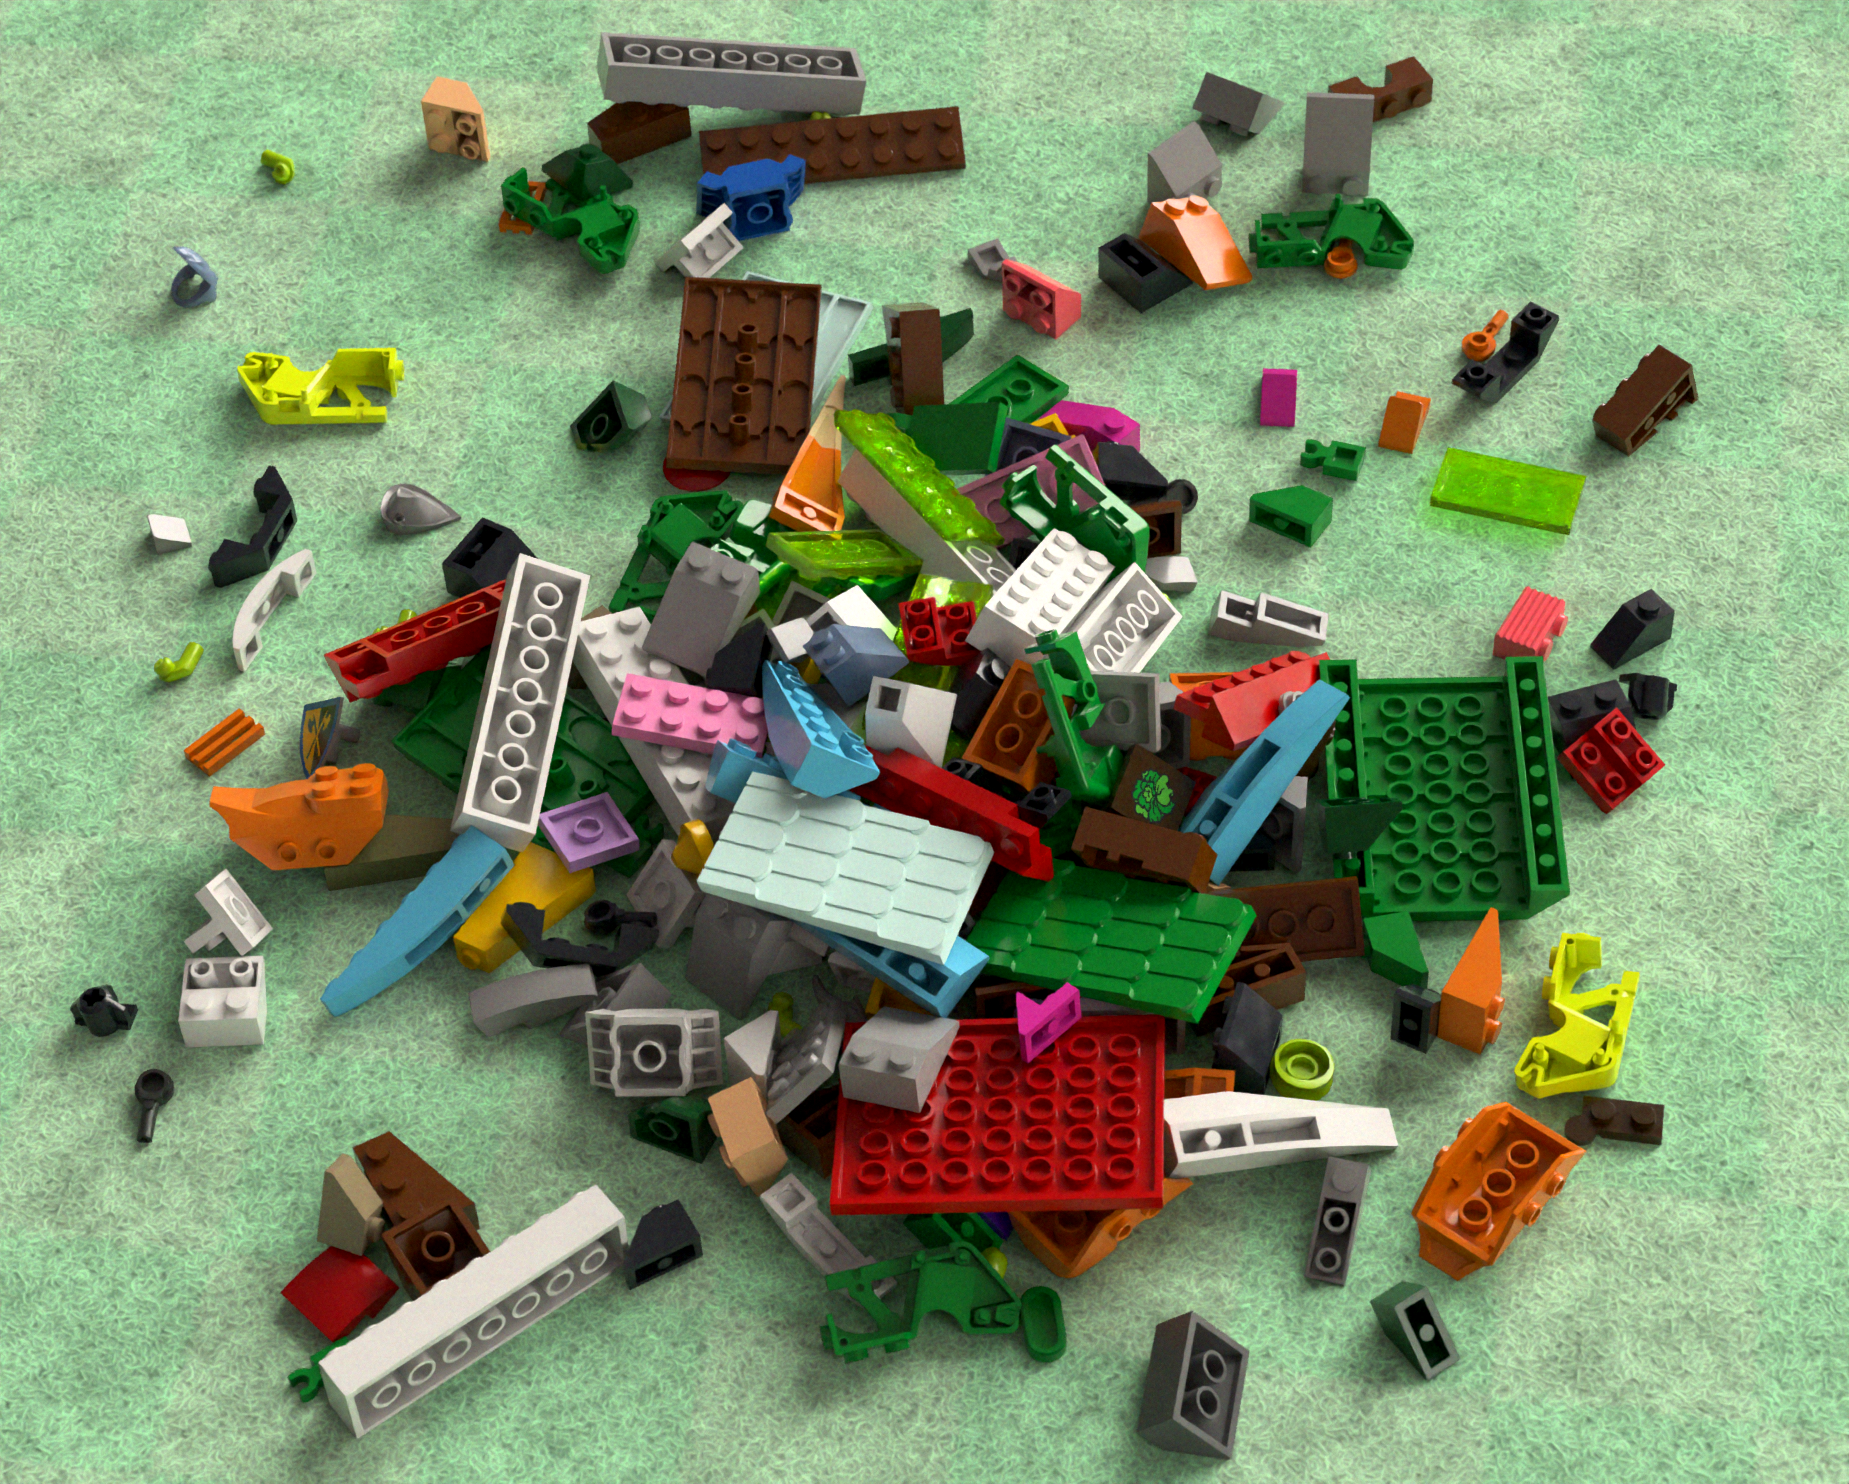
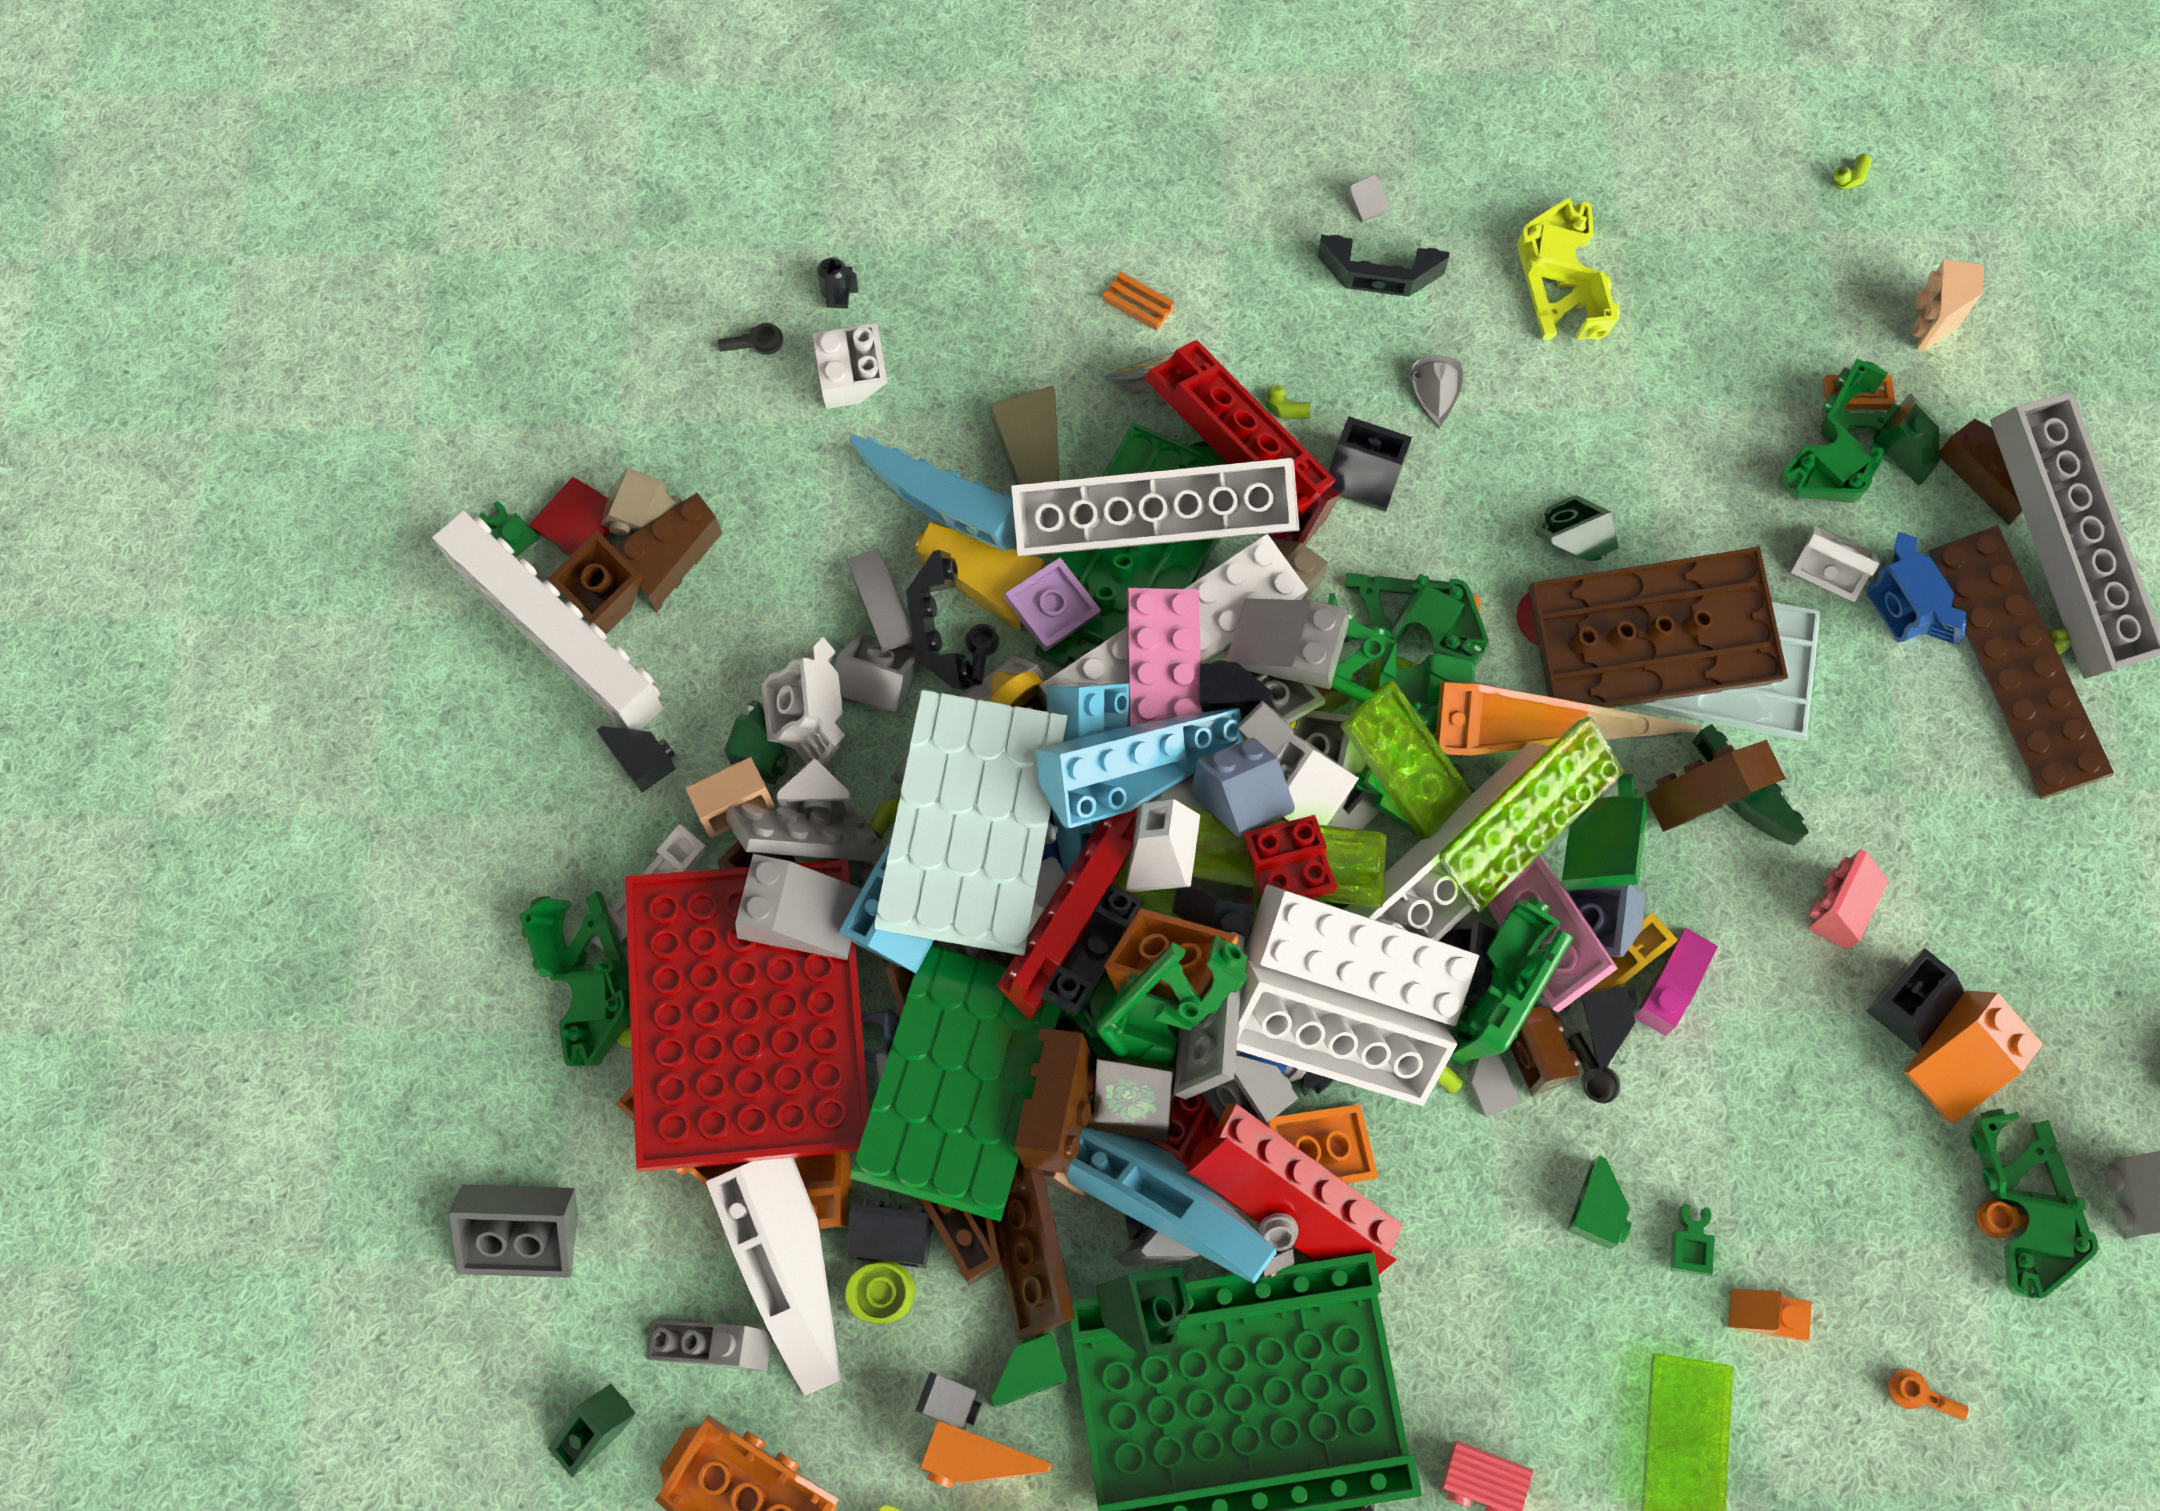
camera: 80 degrees right, 20 degrees up
(171, 671) = (1215, 247): lime arm -> none
(195, 266) = (1685, 136): sand blue piece -> none
(231, 917) = (924, 344): white bracket -> none
(286, 578) = (1292, 288): white slope -> none
(308, 819) = (1030, 371): orange slope -> none
(988, 259) = (1901, 849): light grey slope -> none
(1019, 386) = (1699, 890): green tile -> none
(1043, 1324) = (585, 1089): green tile -> none
(1046, 1022) = (832, 1025): dark pink slope -> none
(1183, 167) = (2082, 1026): light grey slope -> none
(1266, 621) = (1444, 1197): light grey slope -> none
(1278, 397) = (1774, 1171): dark pink slope -> none
(1527, 341) = (1918, 1443): black slope -> none

